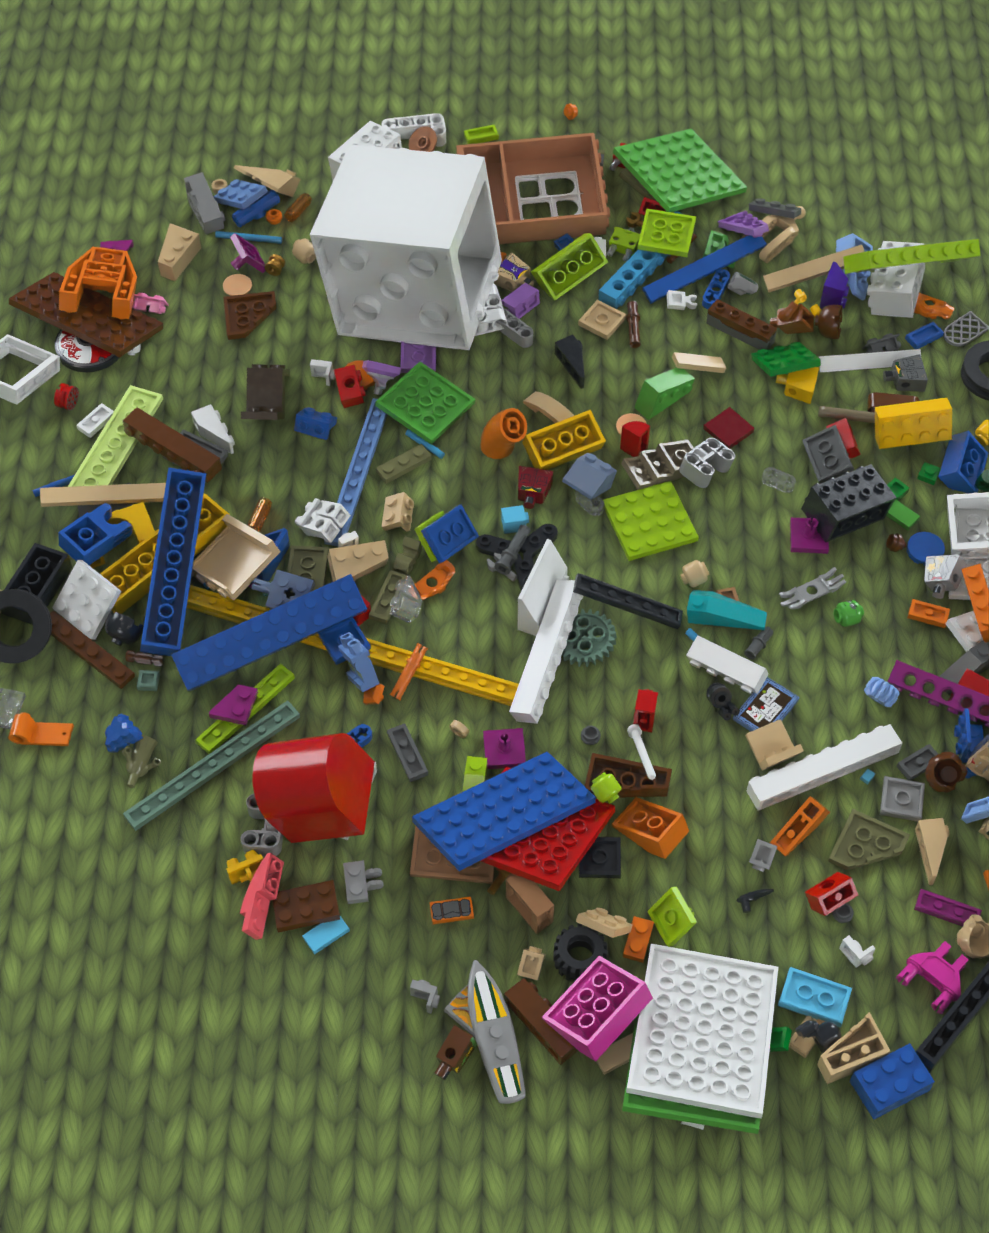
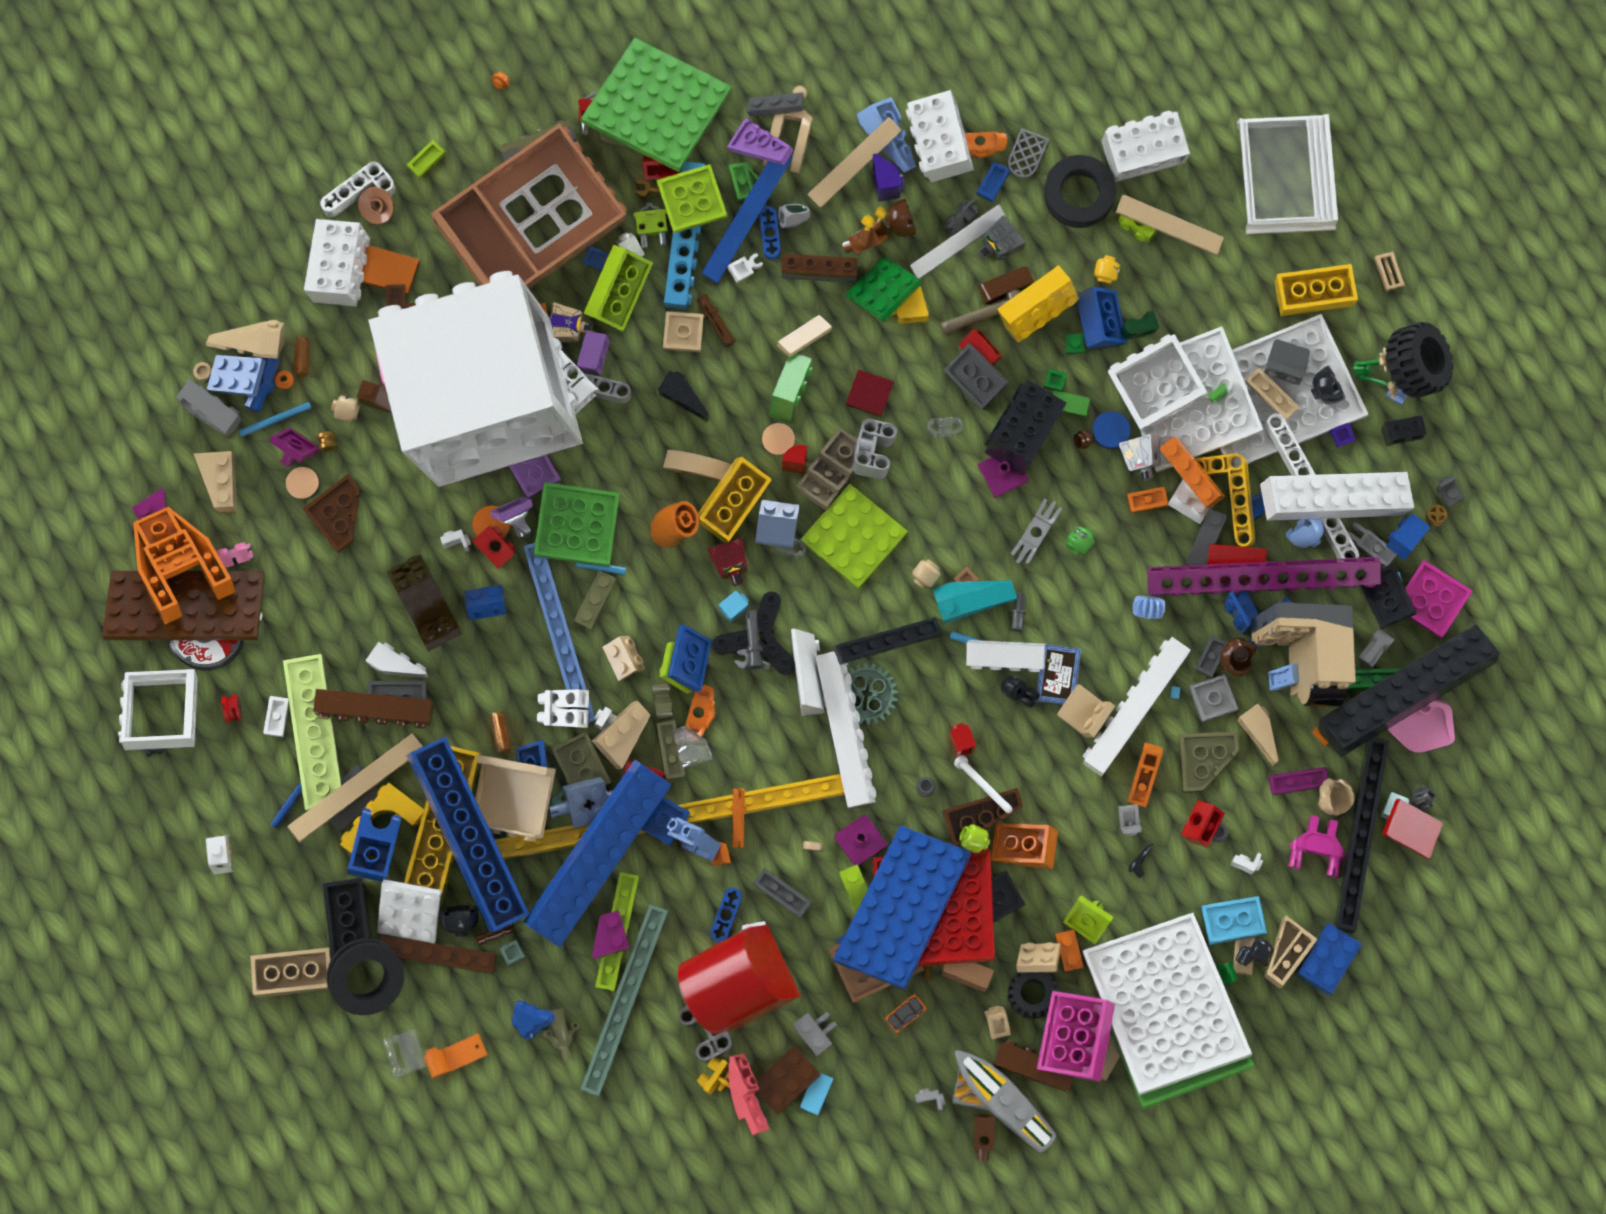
camera: 30 degrees left, 20 degrees up
(911, 255) = (977, 75): lime arch -> none

